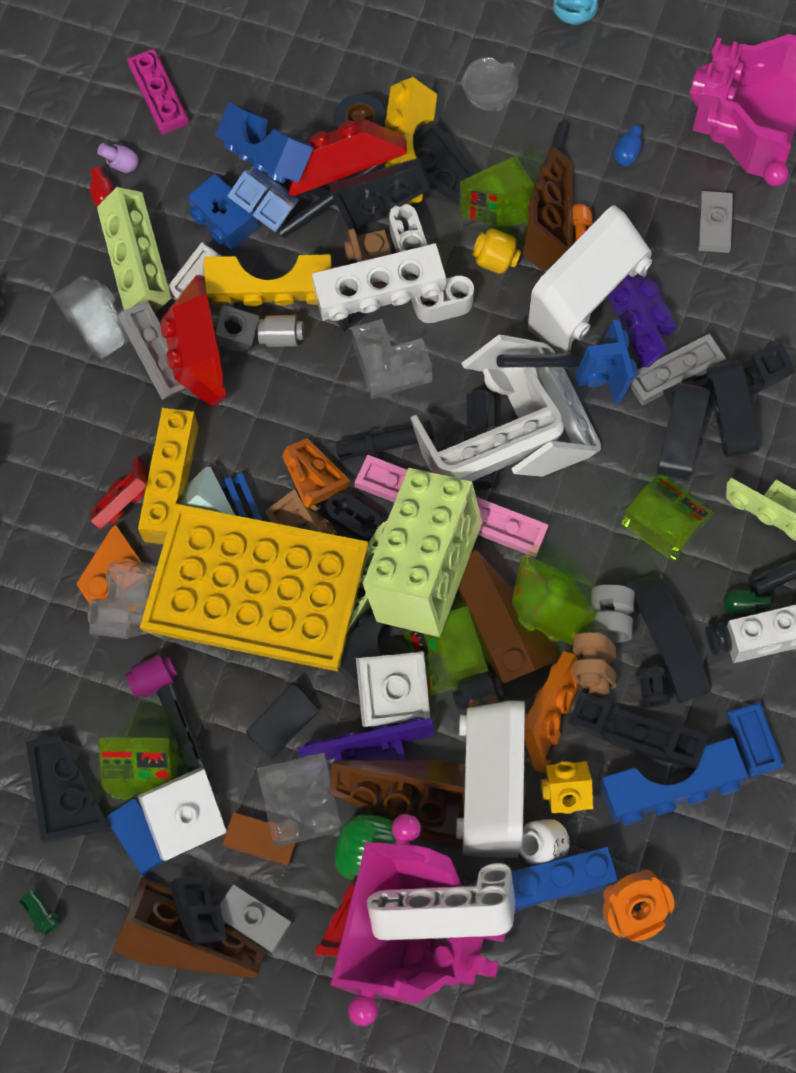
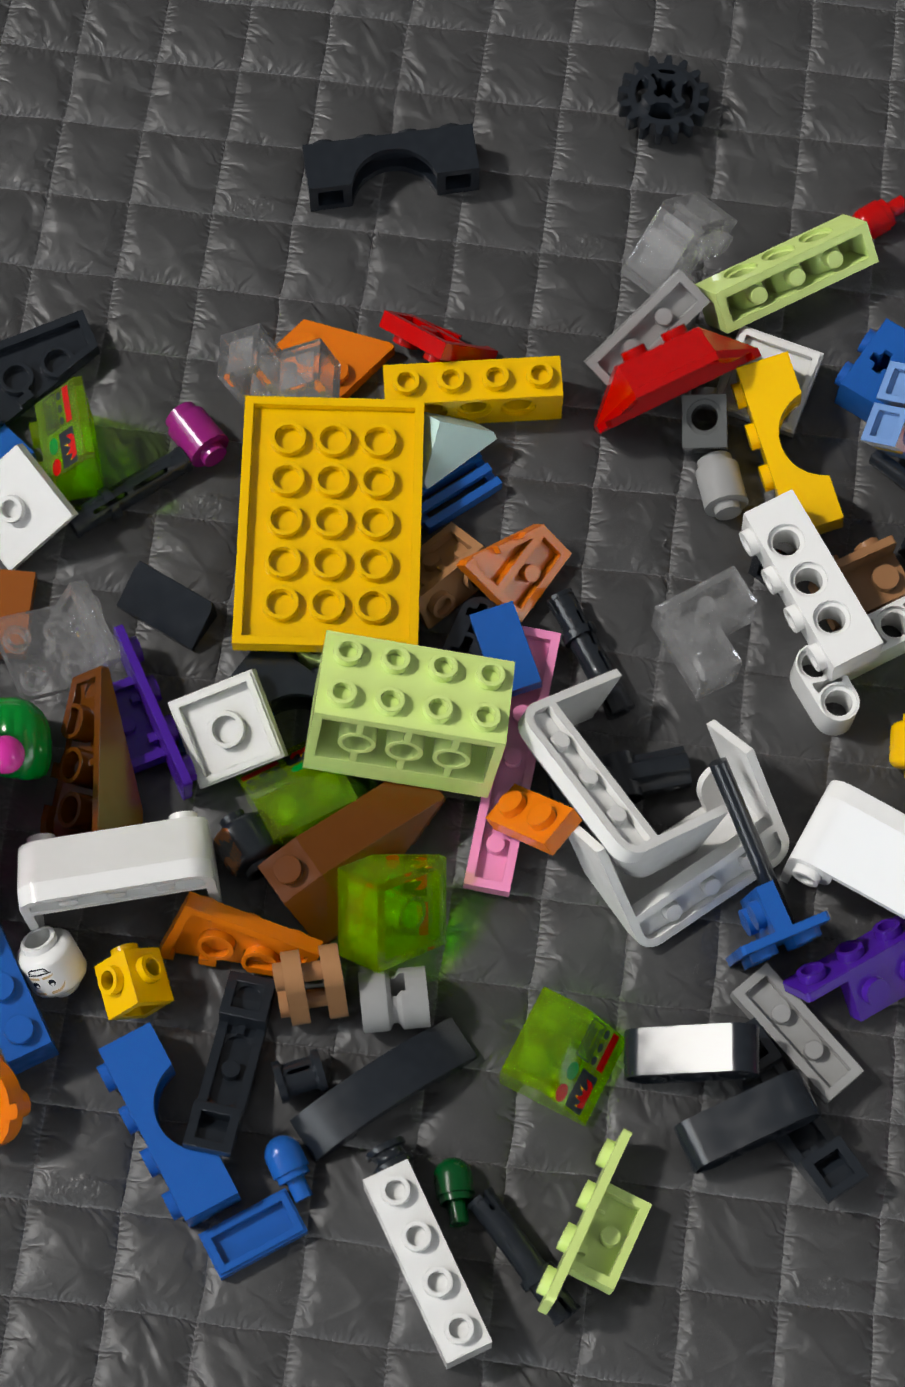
camera: 75 degrees right, 0 degrees up
(371, 490) = (503, 638): none -> blue tile
(508, 492) = (533, 819): none -> orange plate
(713, 706) = (288, 1165): none -> blue cylinder

